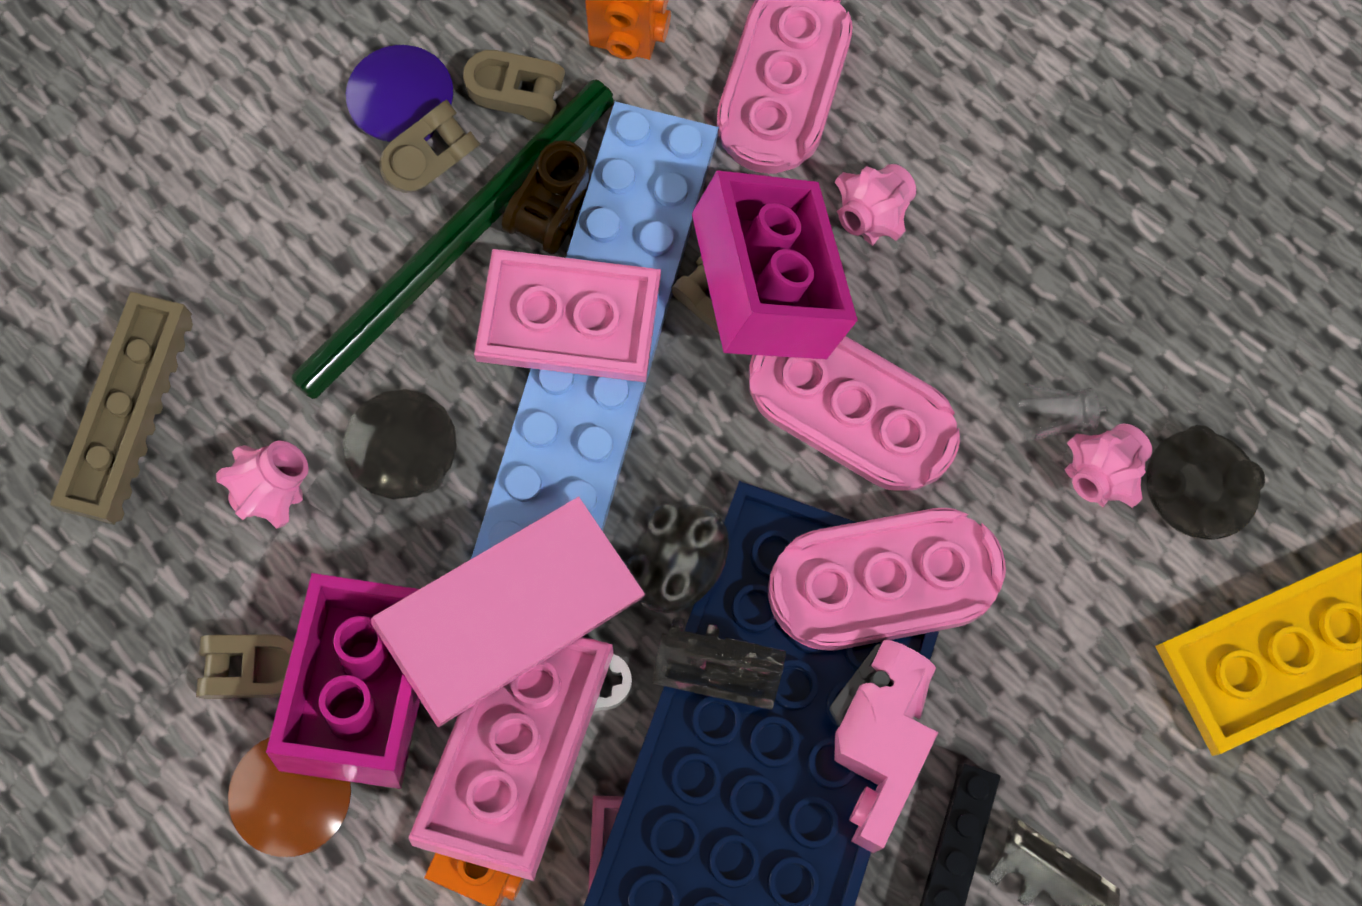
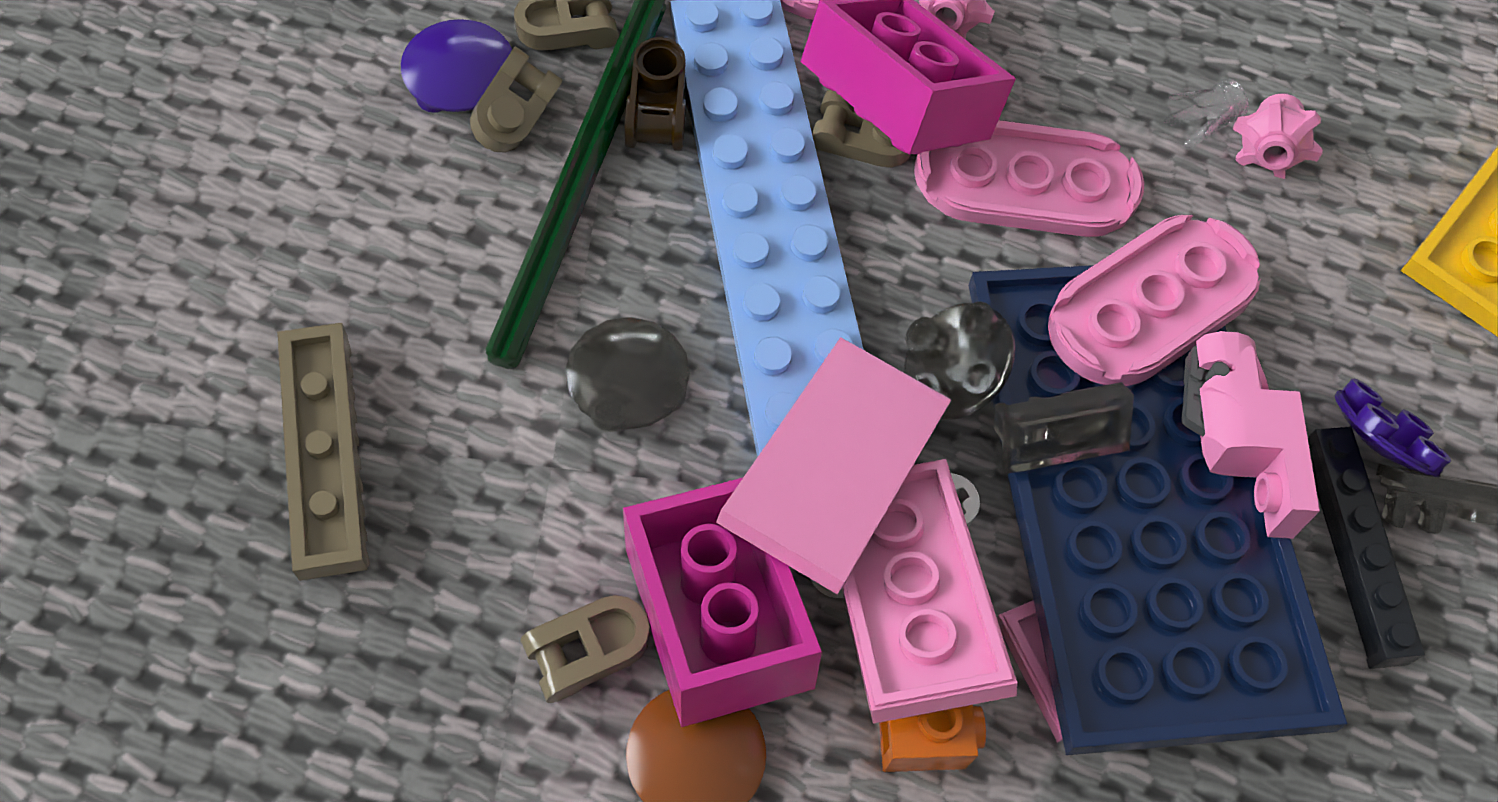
camera: 30 degrees left, 10 degrees down
(265, 481) = (515, 454): bright pink rock -> none
(568, 315) = (736, 188): bright pink tile -> none
(1032, 795) = (1394, 437): none -> dark purple dish
(1203, 484) = (1360, 123): clear smoke dish -> none

